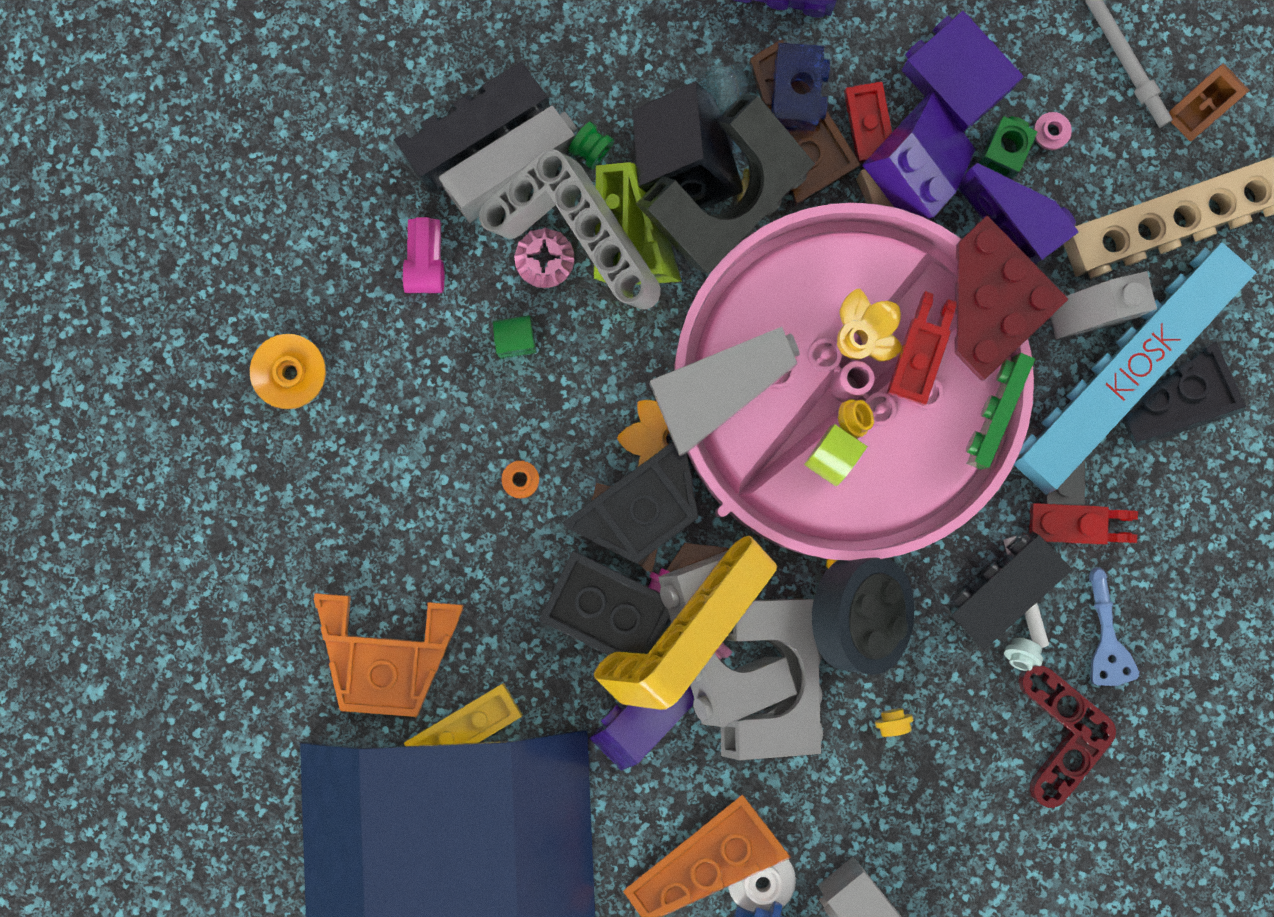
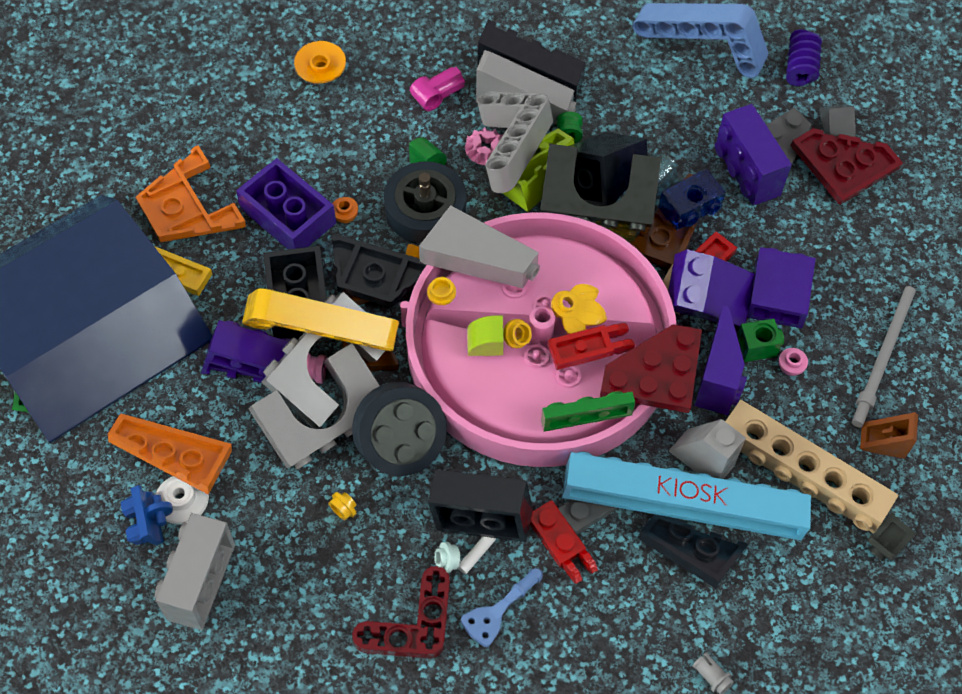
camera: 55 degrees right, 25 degrees down
(479, 548) = (286, 206): none -> dark purple brick
(582, 384) = (419, 198): none -> wheel
(741, 461) = (441, 291): none -> yellow plate

